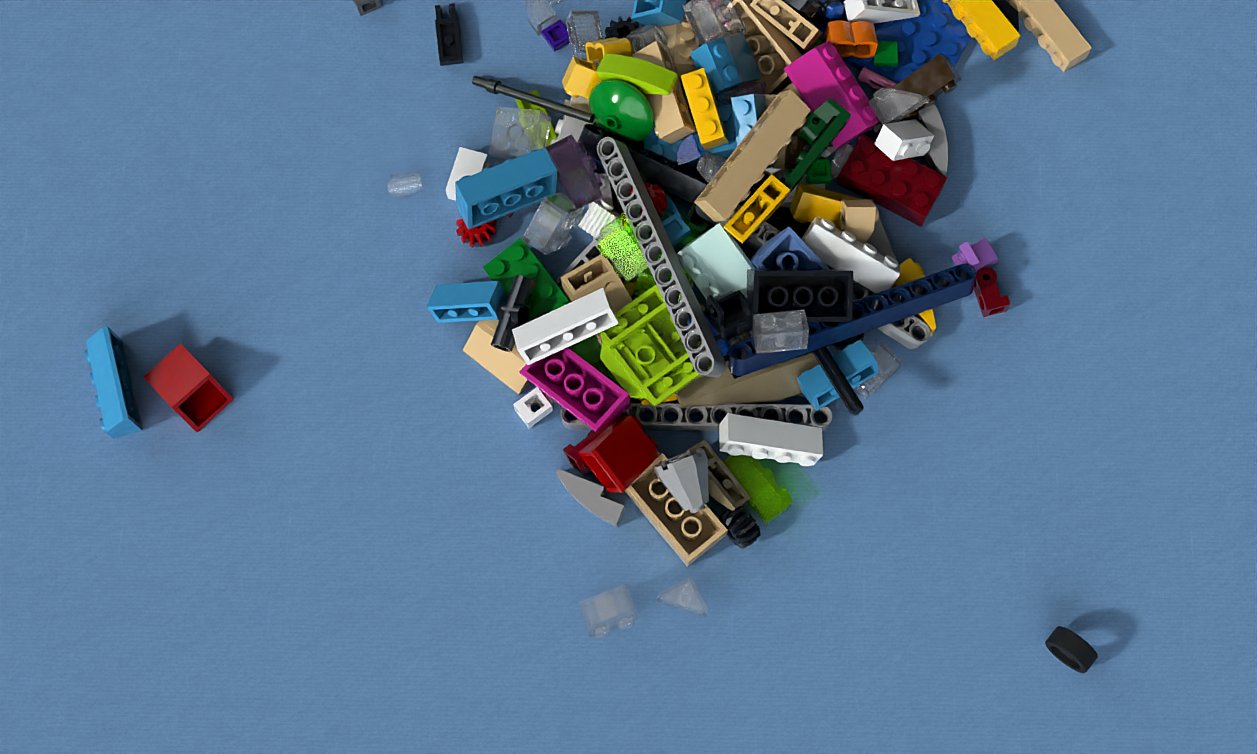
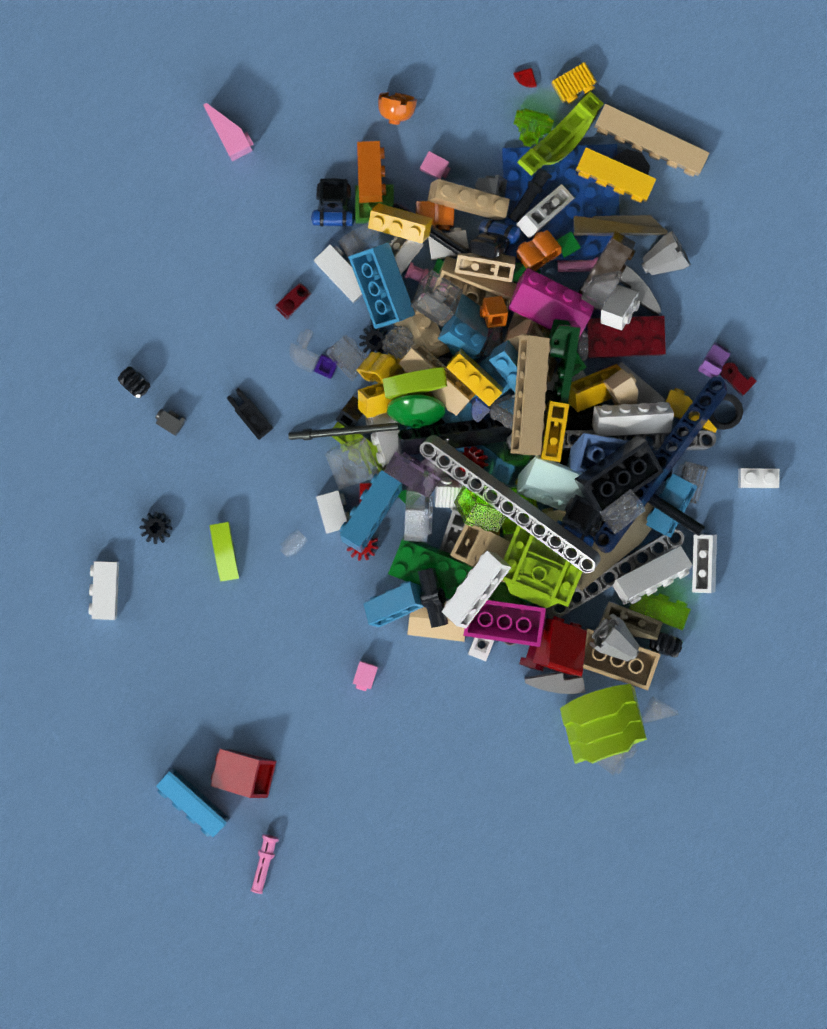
camera: 30 degrees left, 15 degrees up
(151, 490) = (266, 854): none -> bright pink pin
(180, 116) = (104, 590): none -> white brick
(276, 86) = (151, 522): none -> black gear
(329, 149) = (224, 551): none -> lime slope
(388, 363) = (365, 675): none -> bright pink brick
(551, 87) = (350, 413): none -> black brick
(616, 565) = (603, 723): none -> lime slope
(766, 66) = (494, 312): none -> orange brick
(837, 463) = (704, 563): none -> white brick
(952, 409) = (758, 478): none -> white brick
(957, 337) = (738, 415): none -> black tyre
(973, 76) = (624, 225): none -> dark tan wedge
(983, 123) = (665, 256): none -> light grey cone

